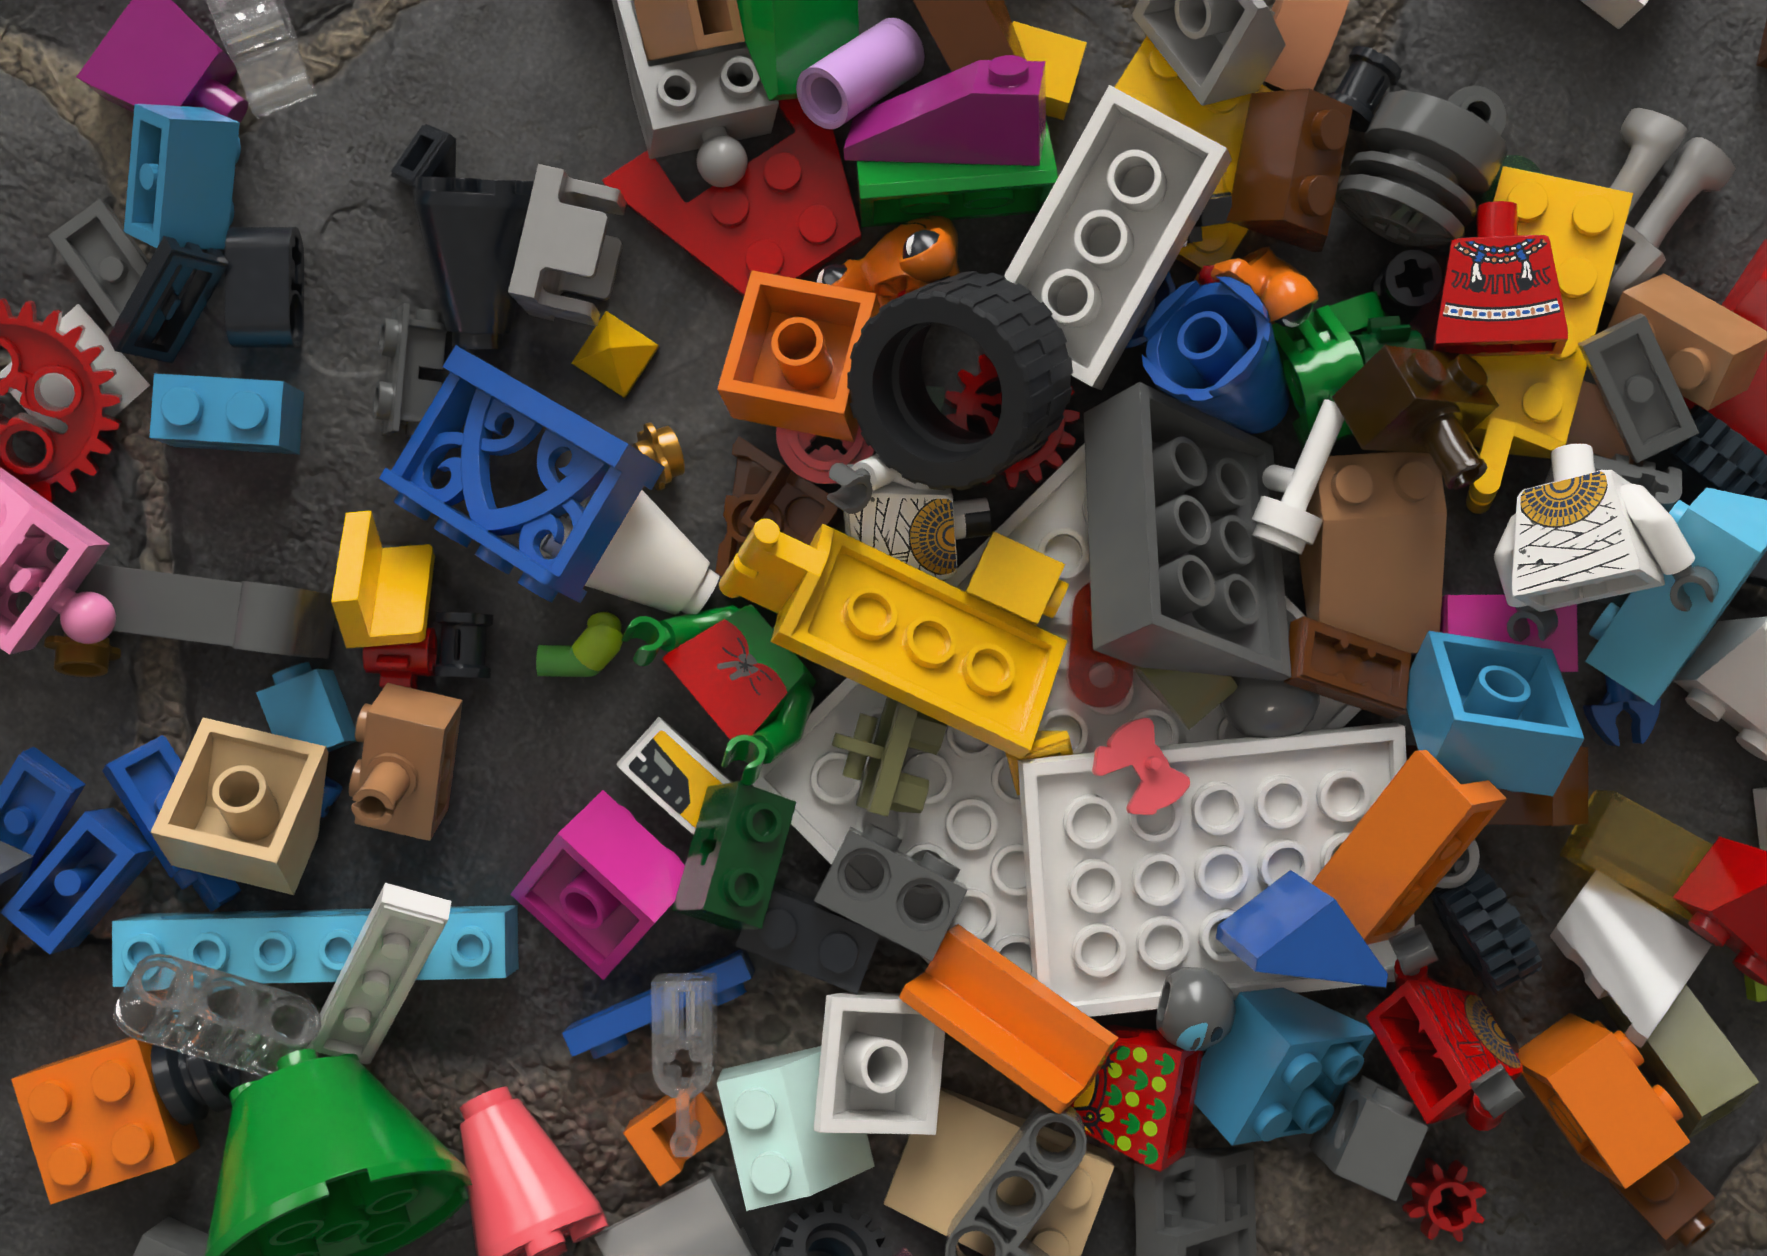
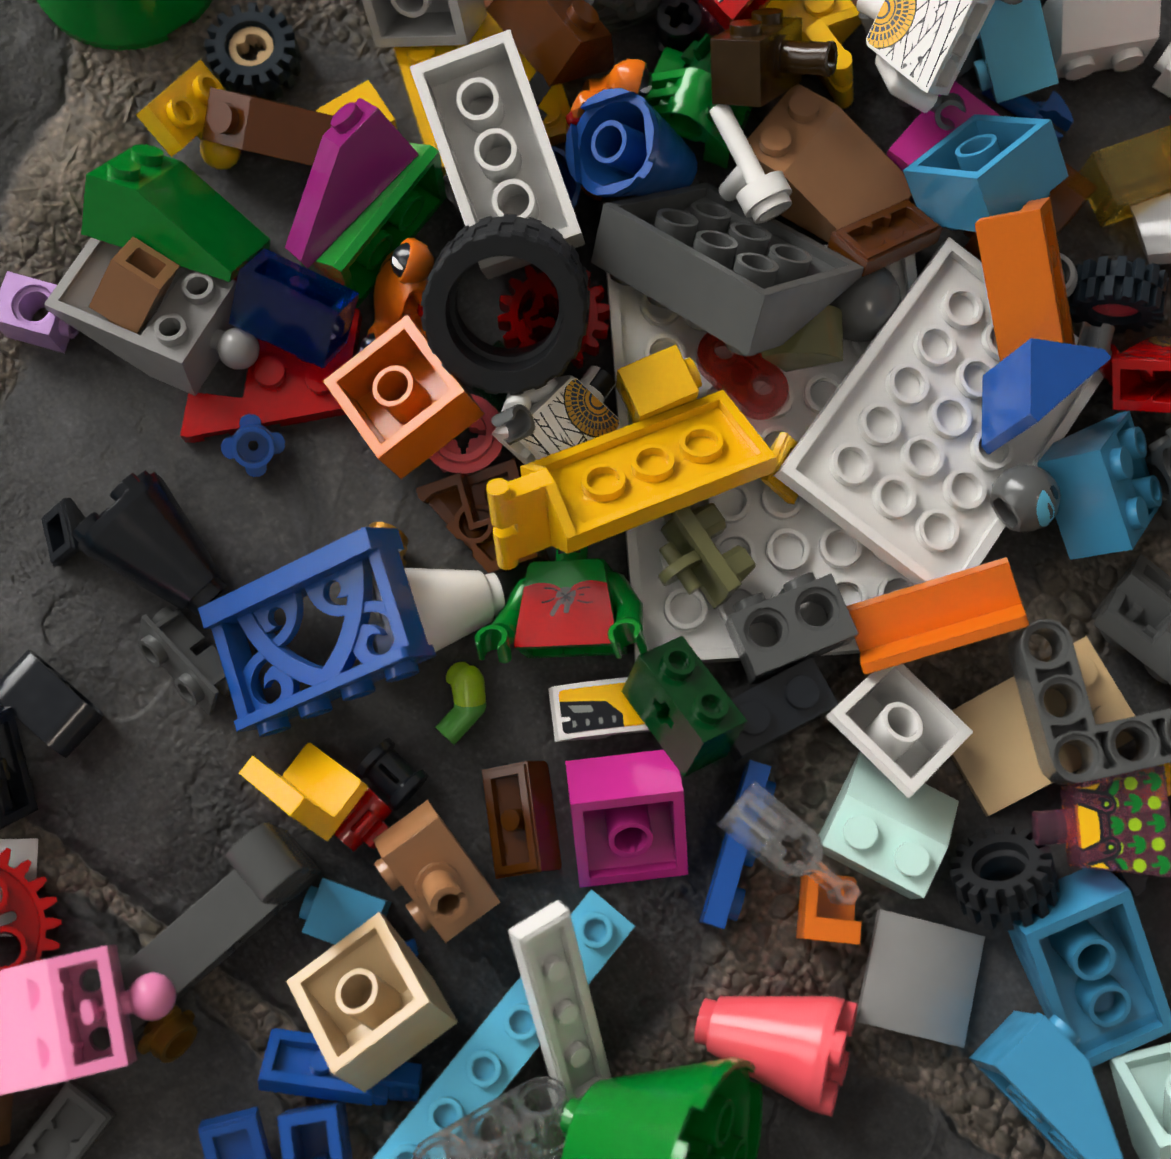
camera: 50 degrees left, 10 degrees down
(226, 413) = (103, 797): dark azure brick -> none
(526, 792) = (521, 819): none -> reddish brown slope
(566, 247) = (204, 484): light grey panel -> none
(615, 354) = (295, 523): yellow slope -> none
(633, 257) = (253, 460): none -> blue plate
(796, 180) = (293, 308): none -> clear blue brick
(860, 73) = (262, 217): lavender pin -> none
(1136, 746) = (826, 395): coral piece -> none
(1142, 1097) = (1056, 581): red torso -> none

